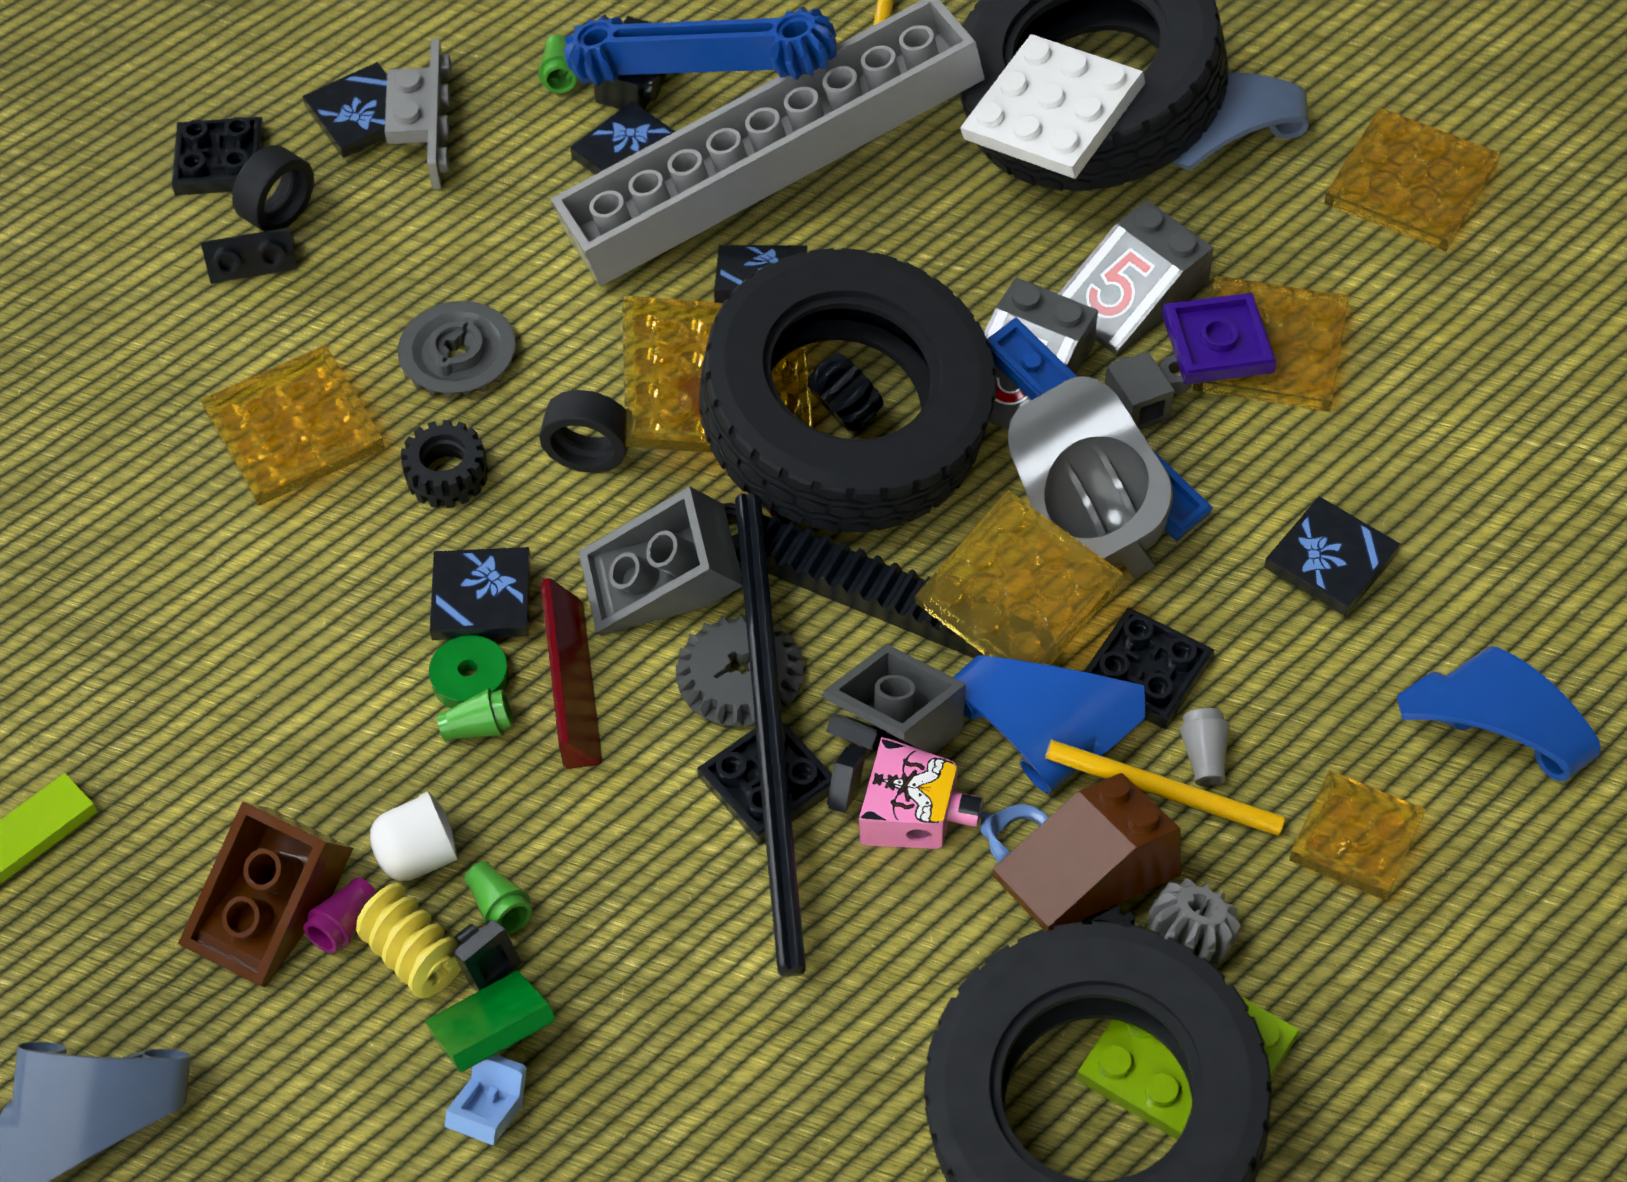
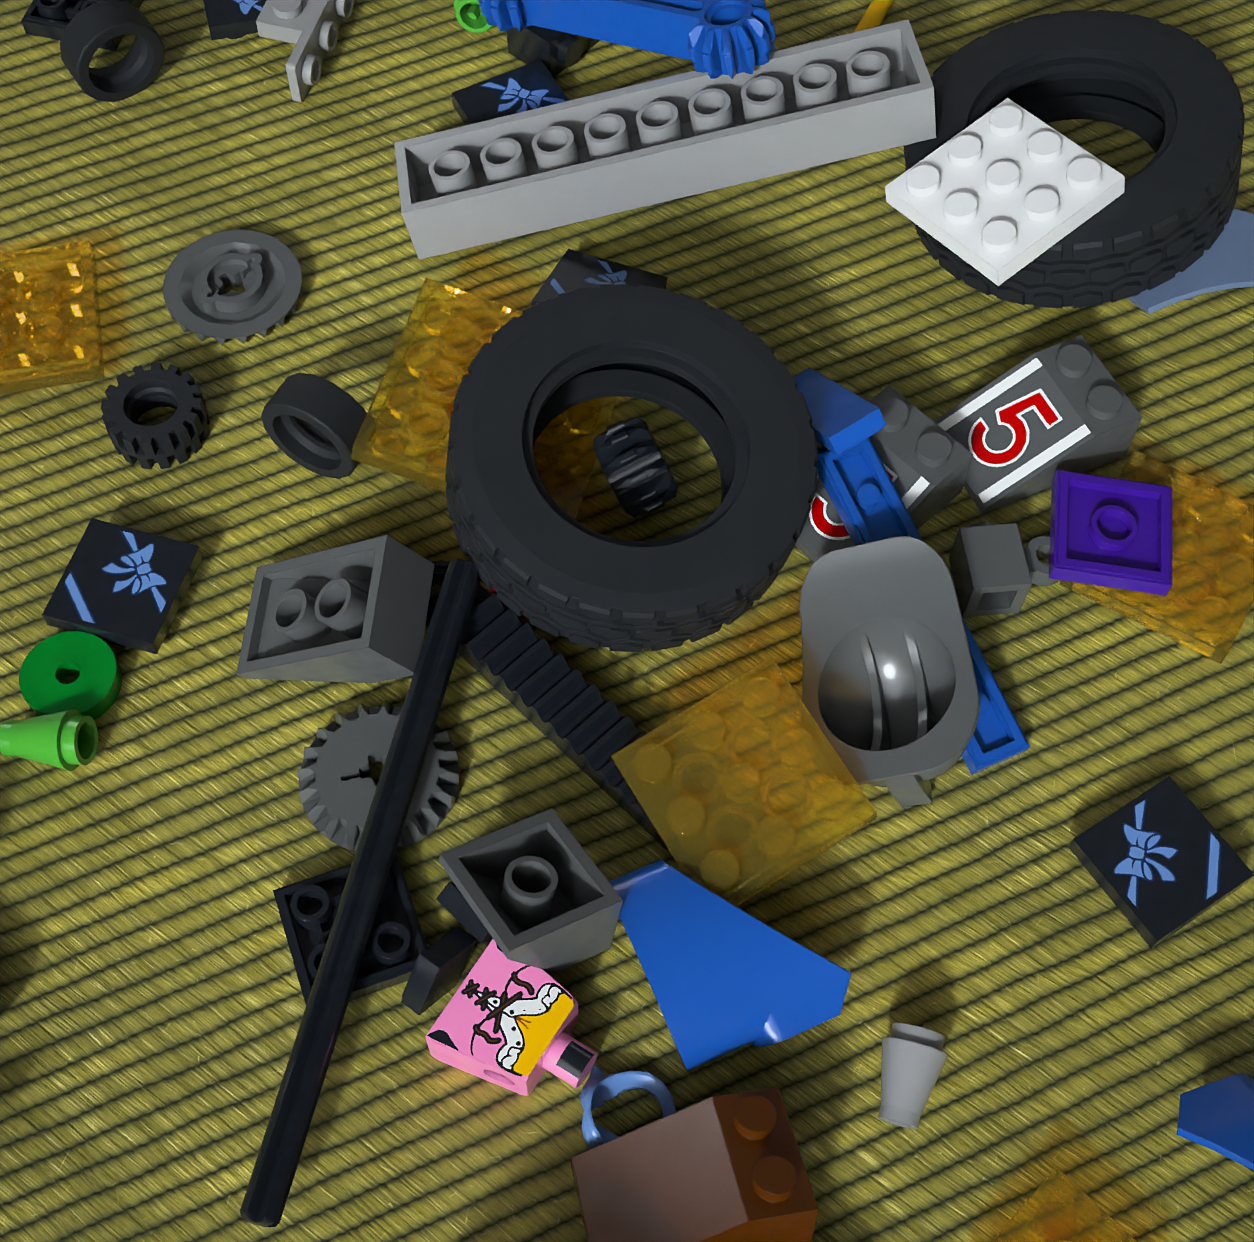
camera: 15 degrees right, 5 degrees up
(249, 255) = (63, 117): black hinge -> none
(570, 677) = (176, 722): dark red slope -> none
(991, 307) = (837, 414): none -> blue tile
(1155, 657) = (878, 931): black tile -> none
(1166, 788) = (834, 1122): yellow axle -> none

